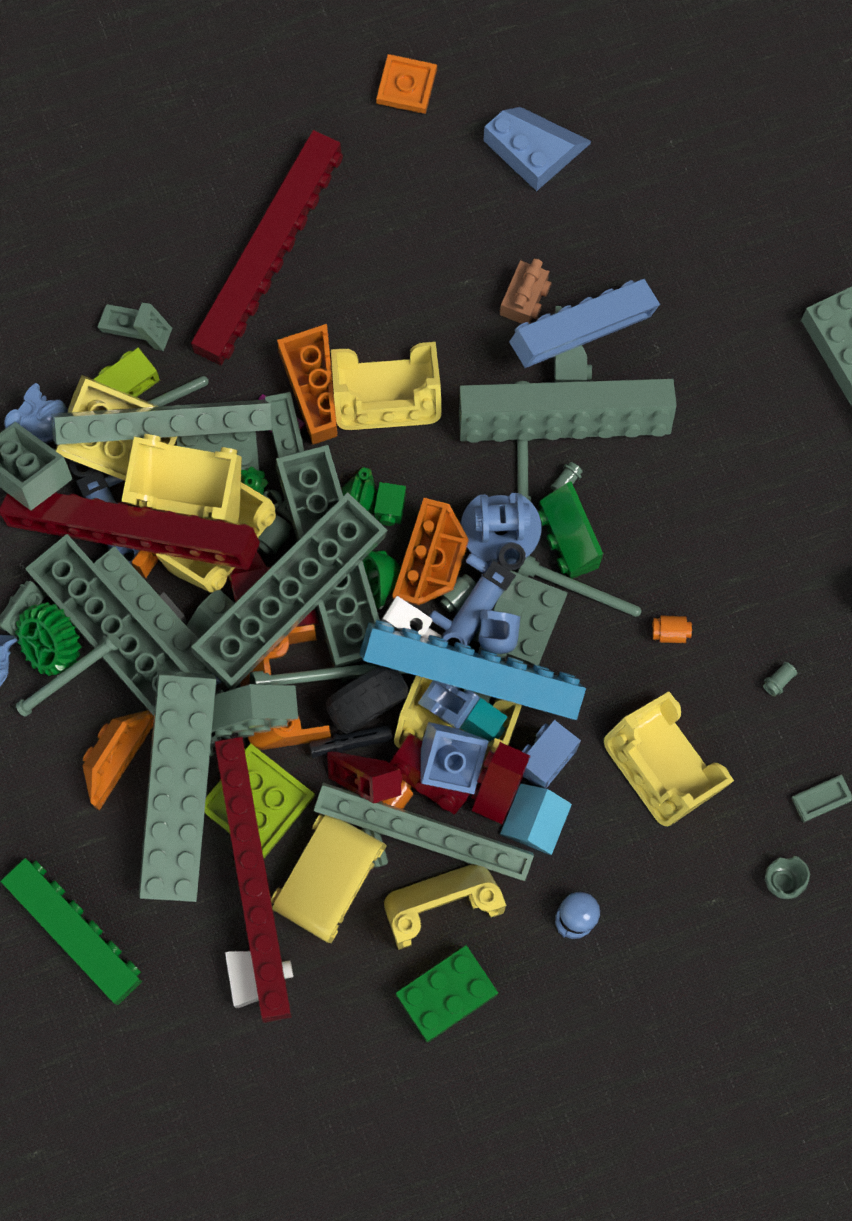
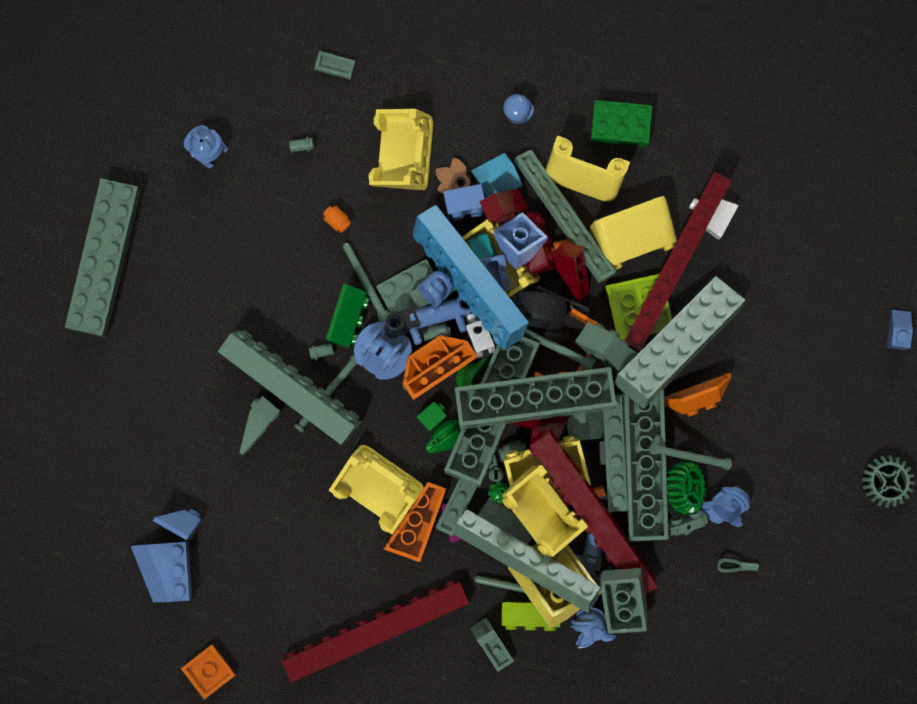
camera: 140 degrees left, 10 degrees up
(72, 931) = (792, 316): green brick -> none
(525, 292) = (251, 479): nougat brick -> none
(560, 192) = (181, 523): none -> medium blue slope
(583, 322) = (237, 429): medium blue brick -> none
(588, 778) = (450, 176): none -> medium nougat plate
(787, 877) = (391, 38): sand green hair -> none

